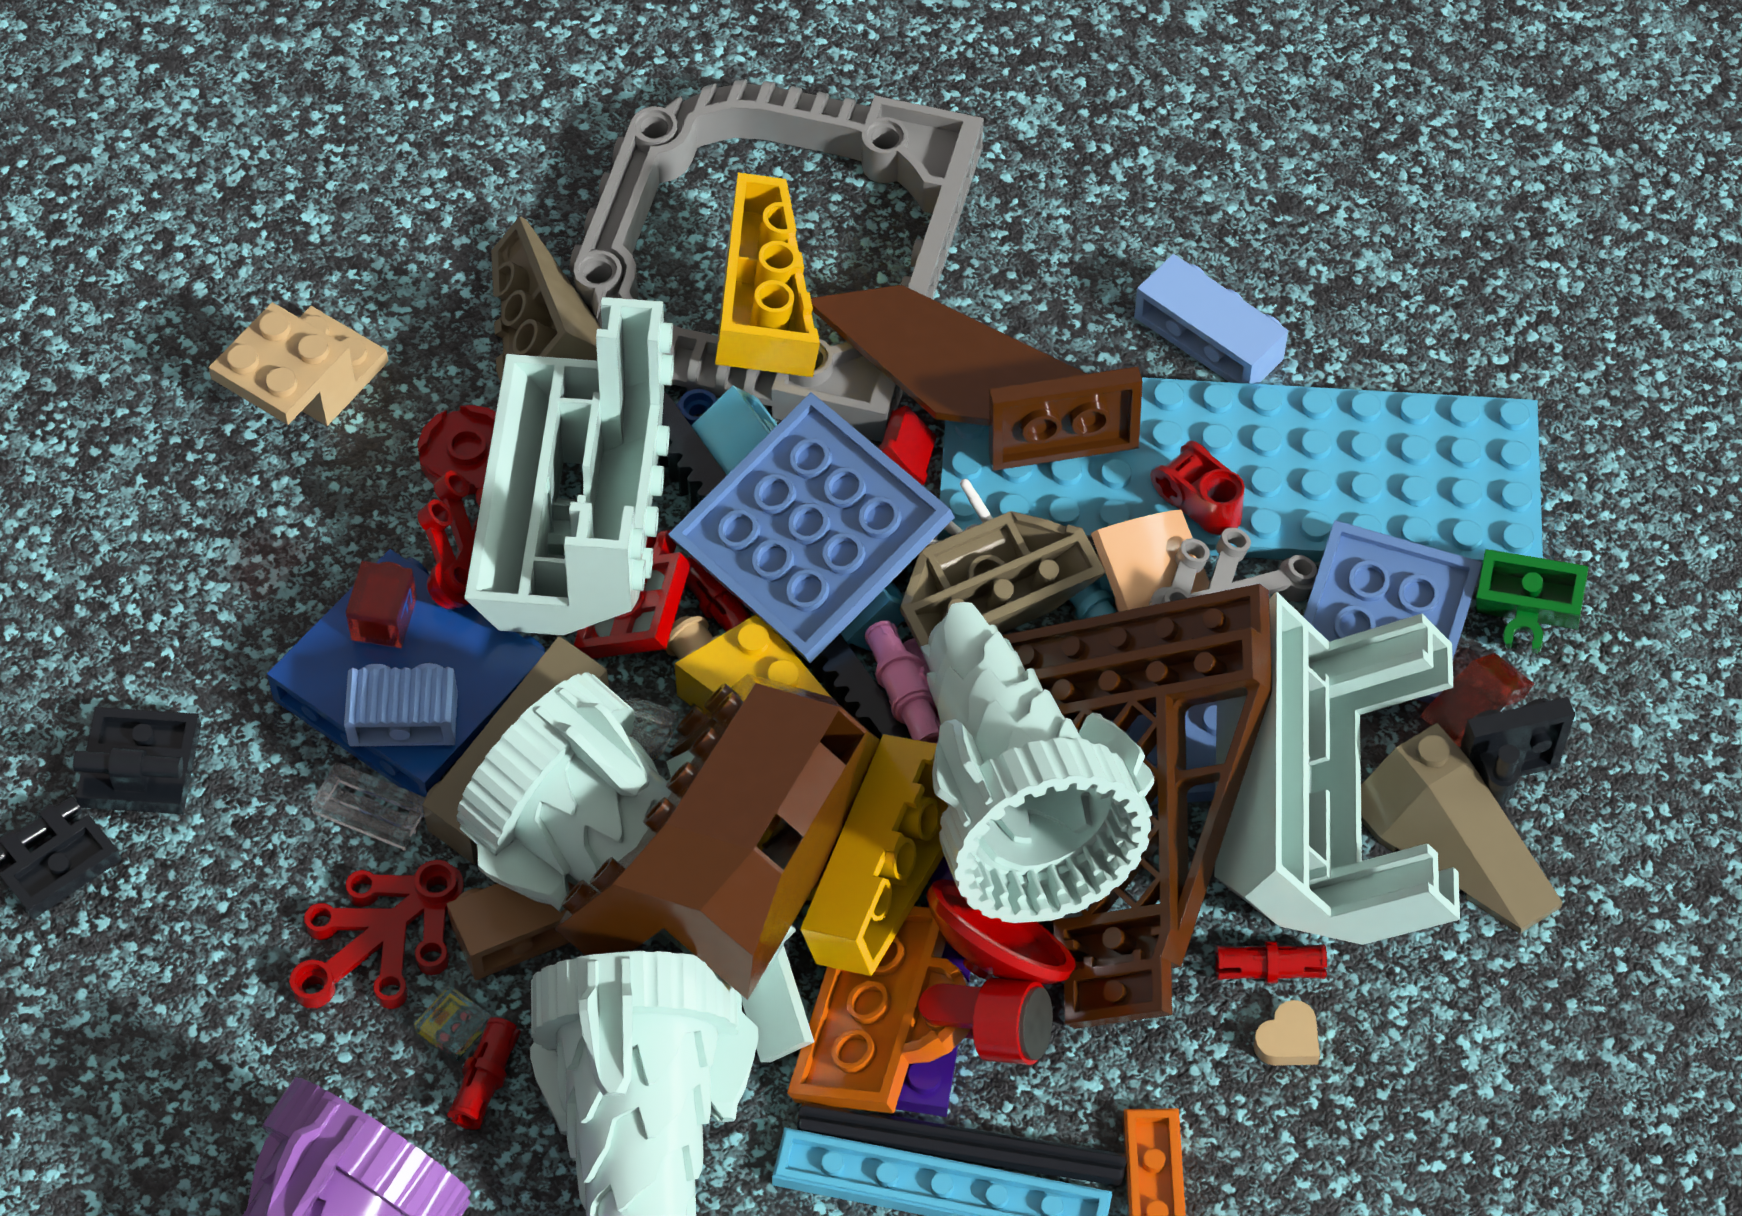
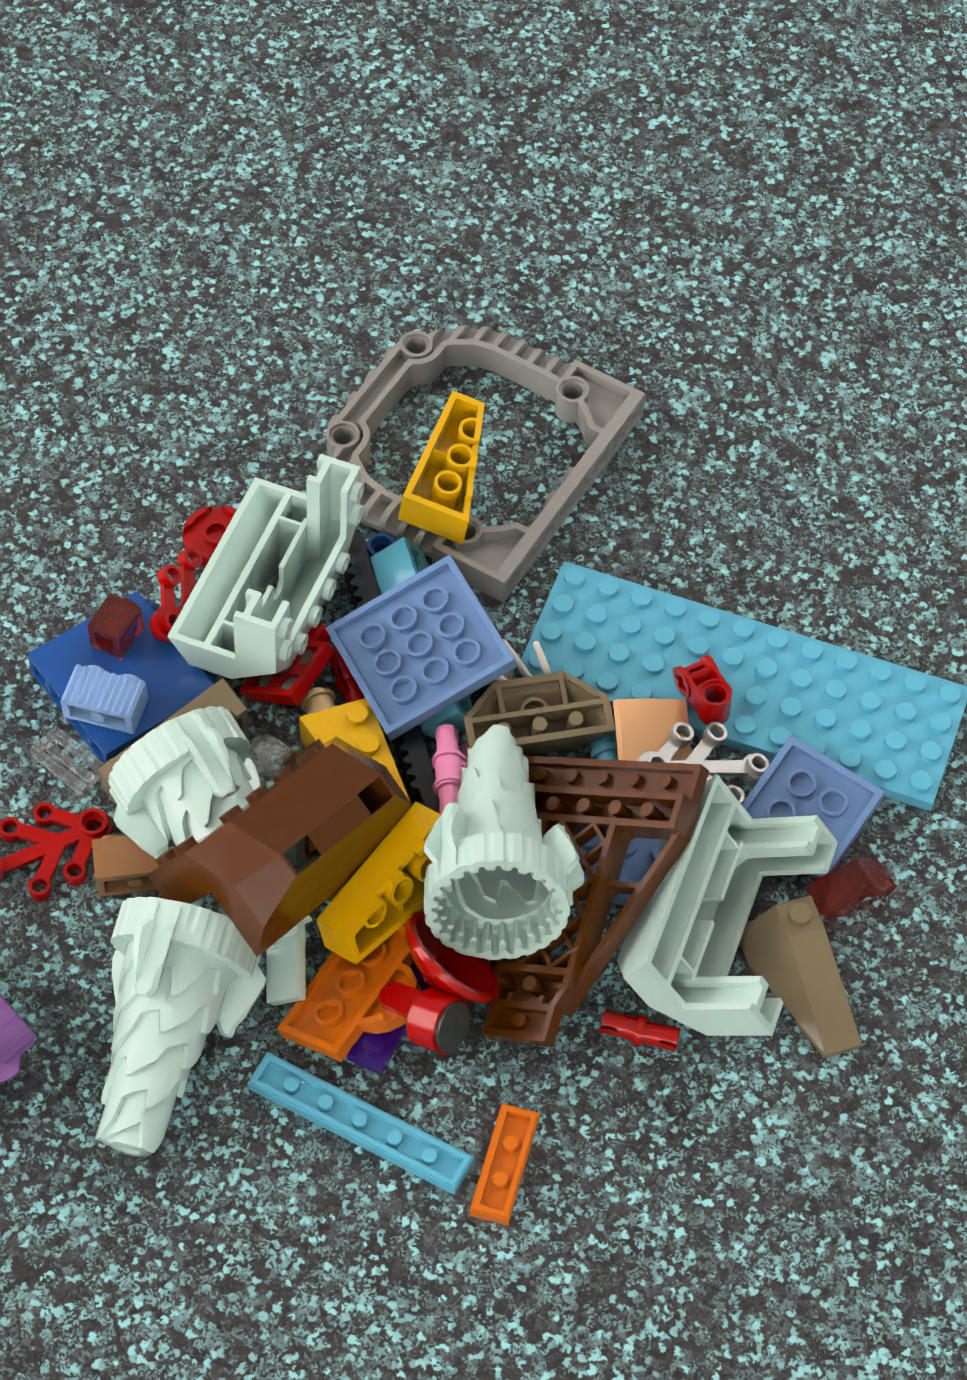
camera: 15 degrees right, 0 degrees up
(298, 364) = (121, 450): tan bracket -> none
(452, 1023) = (73, 921): clear light blue tile -> none
(484, 1073) = (80, 960): red pin -> none
(538, 302) = (296, 444): dark tan wedge -> none
(909, 443) = (512, 610): red tile -> none
(965, 1144) = (386, 1097): black axle -> none
(983, 377) = (578, 573): reddish brown piece -> none
(1210, 322) = (757, 575): light blue brick -> none
(1289, 1037) = (634, 1085): tan tile -> none
(1517, 743) = (862, 925): black plate -> none
(1531, 593) = (913, 822): green brick -> none

